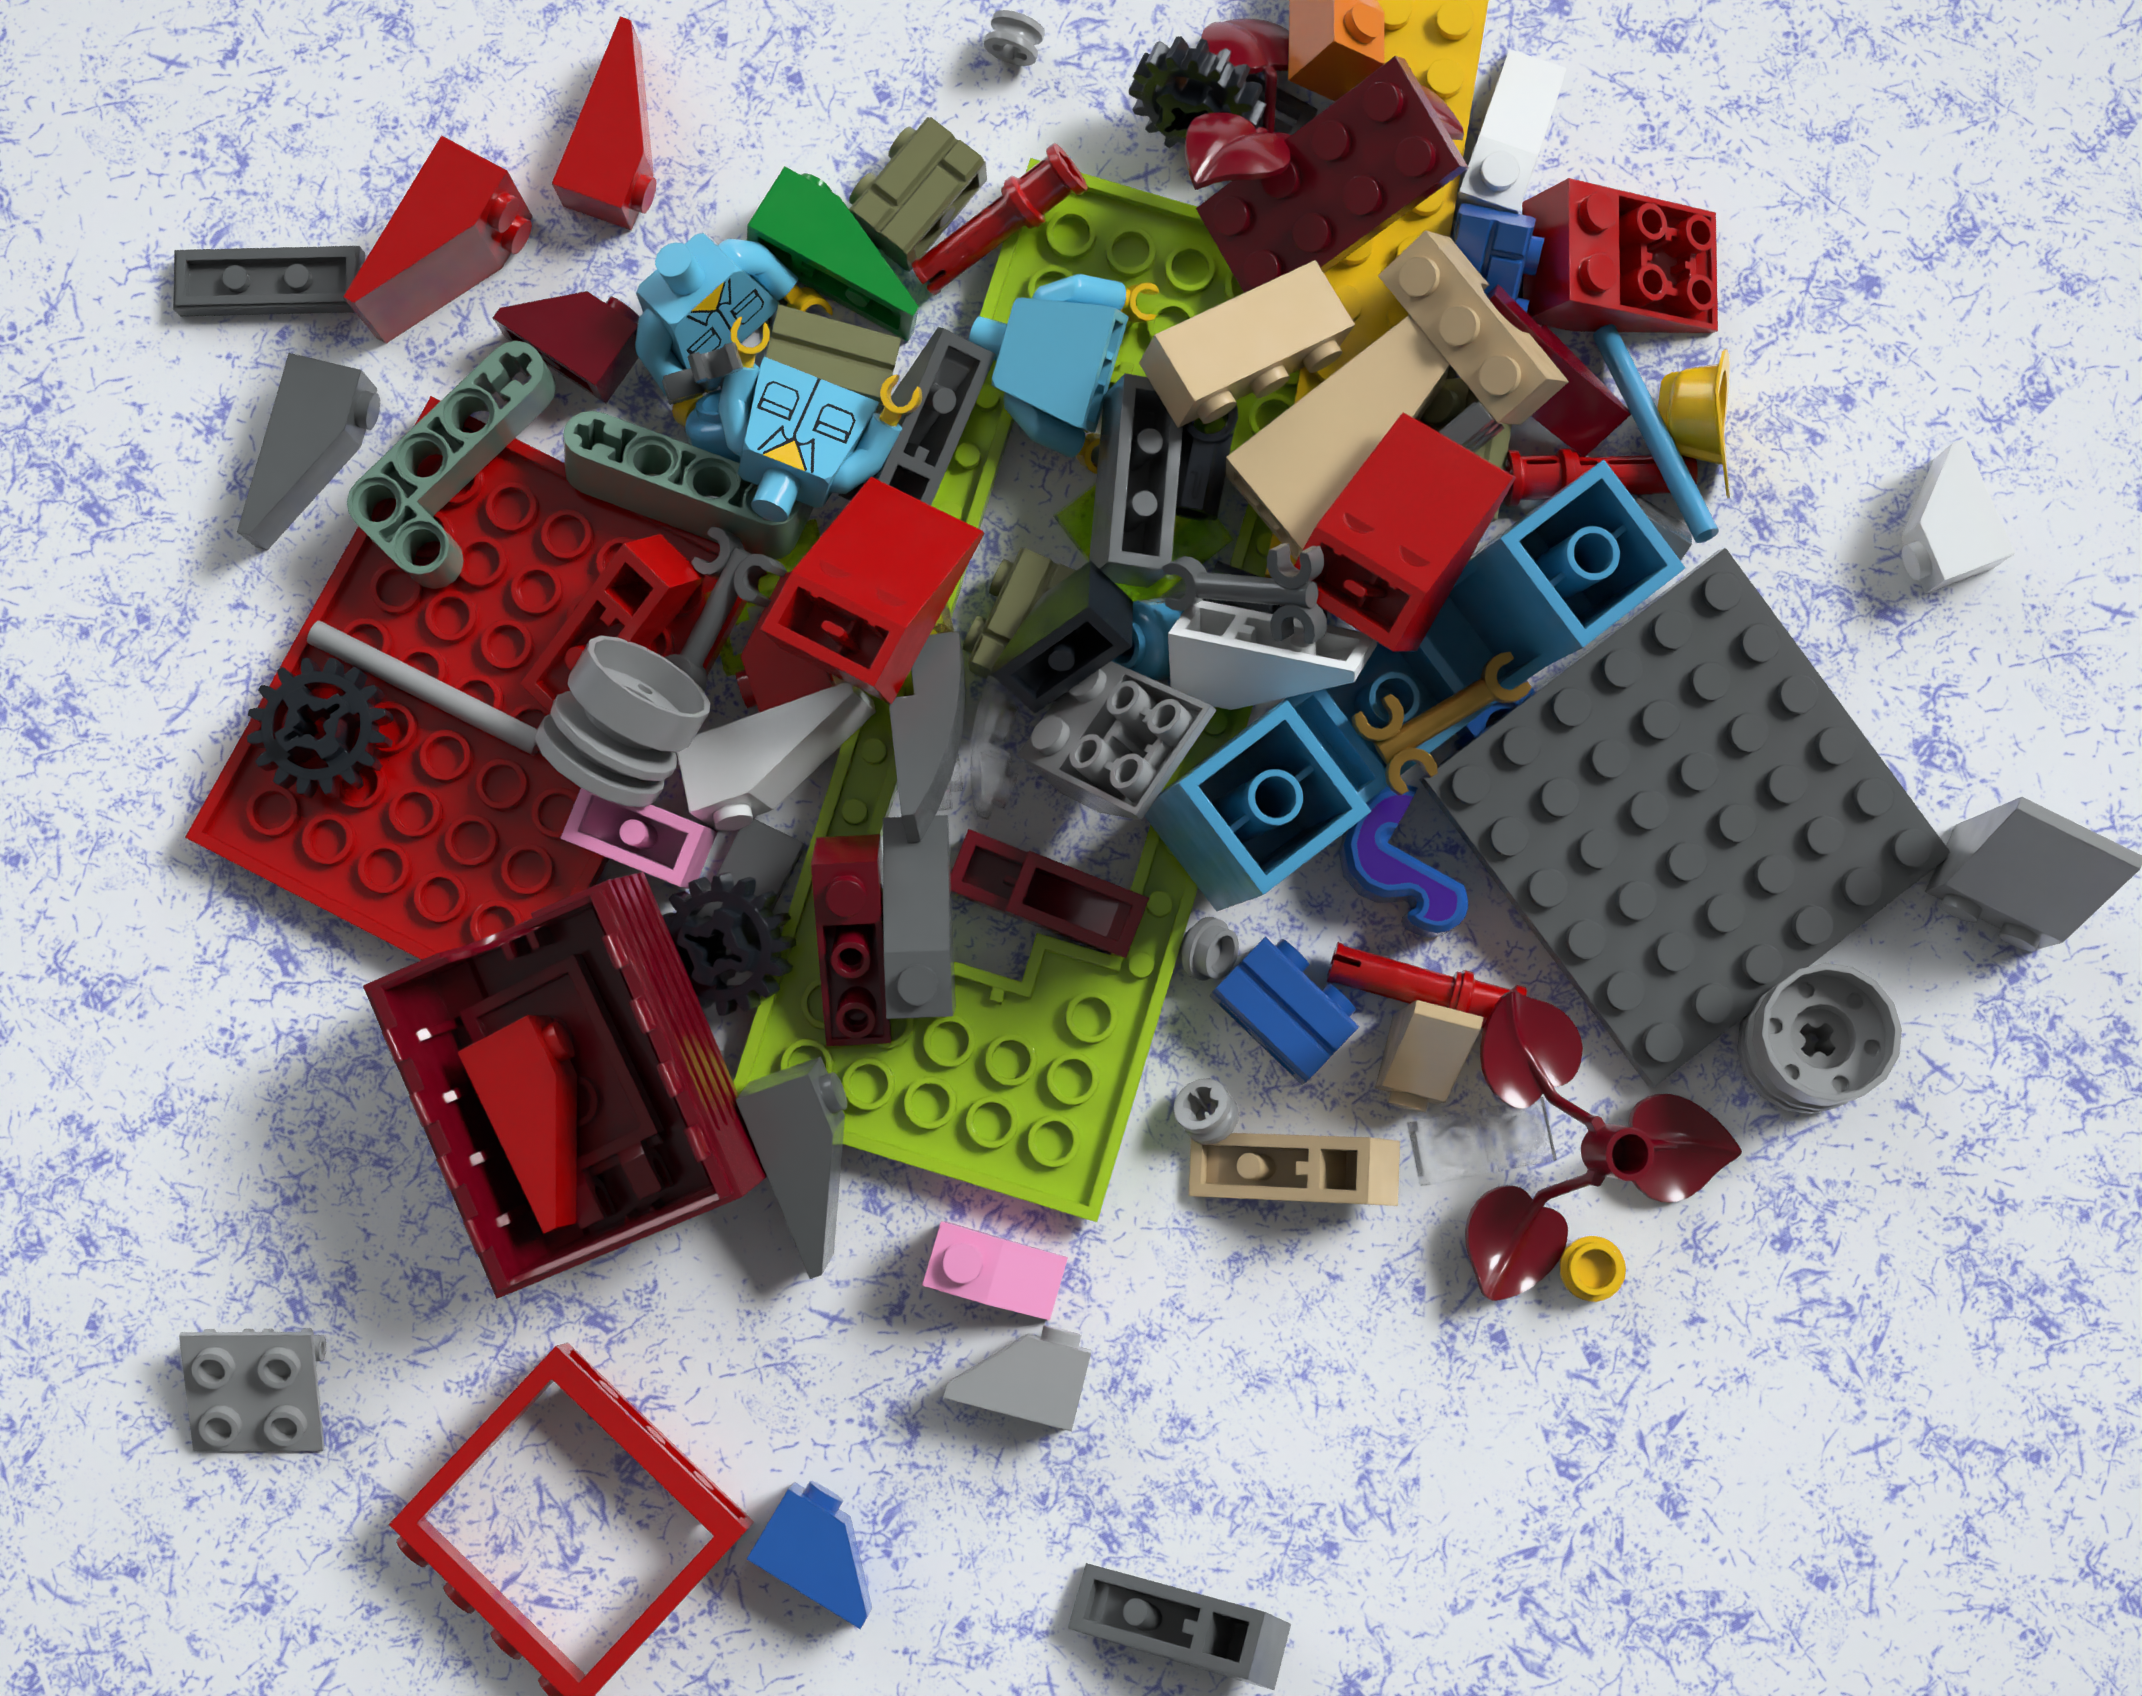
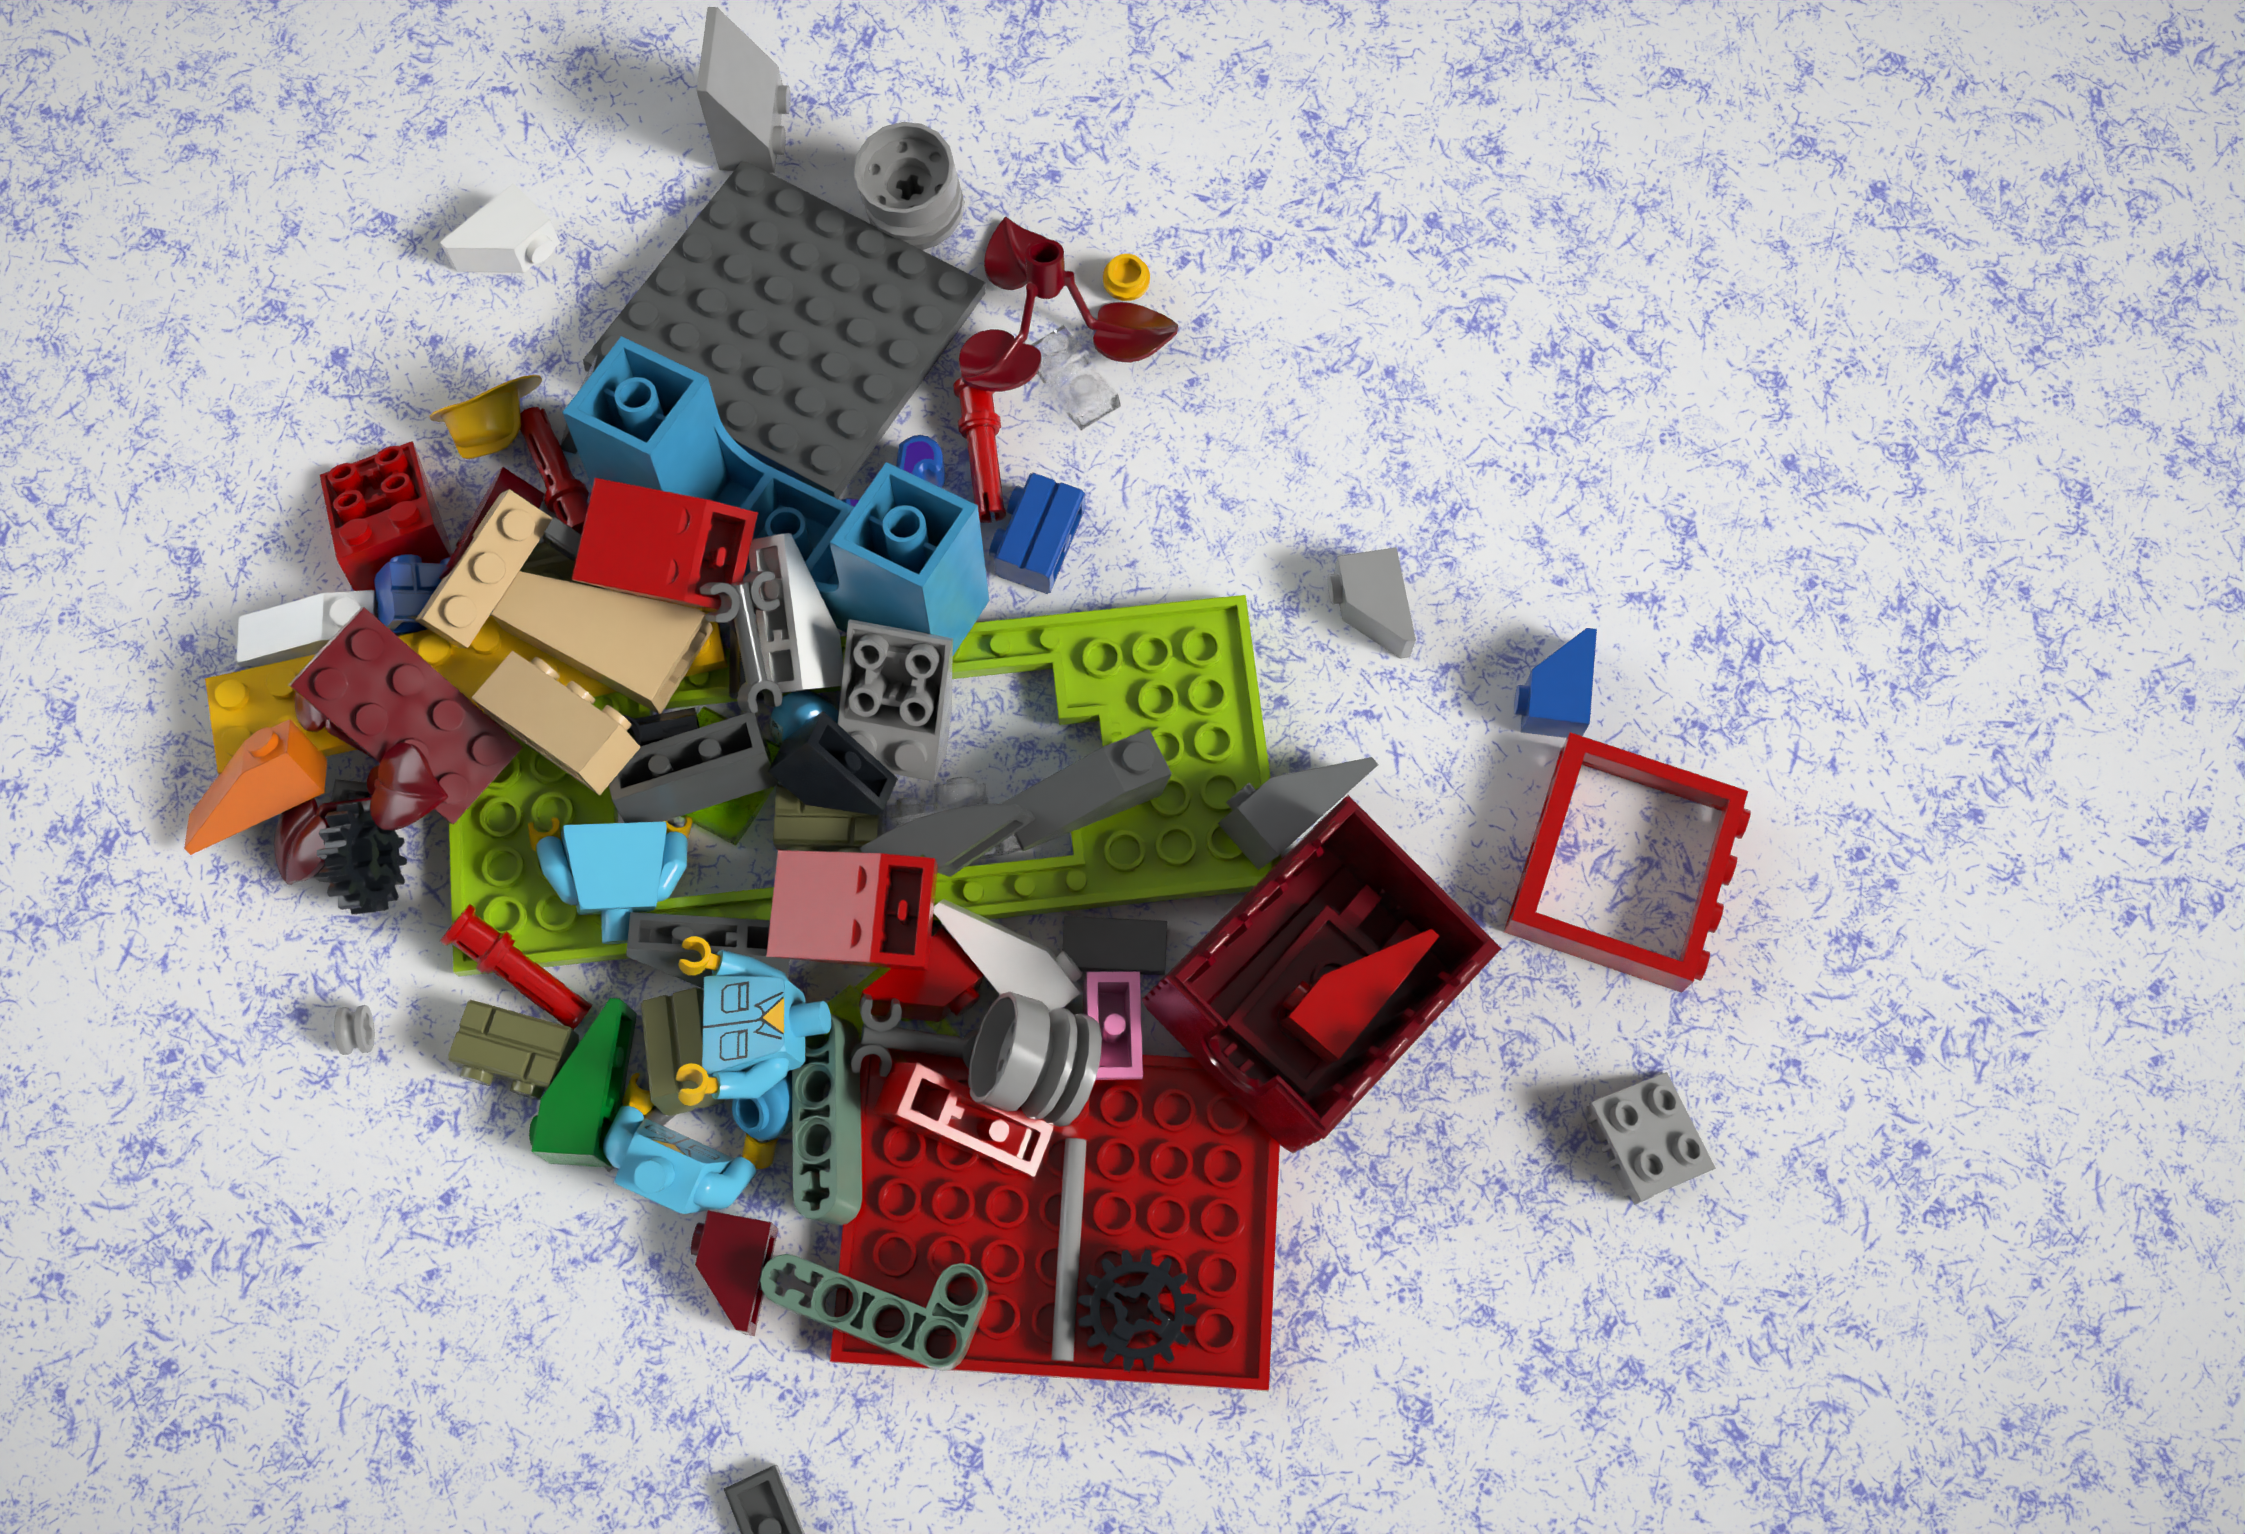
camera: 115 degrees left, 10 degrees down
(308, 440) = (893, 1448): dark grey slope -> none
(441, 240) = (672, 1396): red slope -> none
(609, 152) = (559, 1310): red slope -> none
(705, 374) = (723, 1117): dark grey bar -> none
(748, 931) = (1166, 908): black gear -> none
(851, 938) = (1118, 837): dark red slope -> none
(994, 1271) = (1312, 656): bright pink slope -> none
(1047, 894) = (1026, 716): dark red slope -> none
(1180, 1625) = (1488, 438): dark grey slope -> none
(1197, 1096) = (1145, 567): light grey bush -> none
(1209, 949) = (1017, 600): light grey plate -> none
(1297, 1169) = (1147, 484): tan slope -> none
(1398, 742) = (813, 504): pearl gold bar -> none
(1425, 1054) = (1030, 420): tan slope -> none
(1655, 434) = (510, 444): dark azure bar -> none

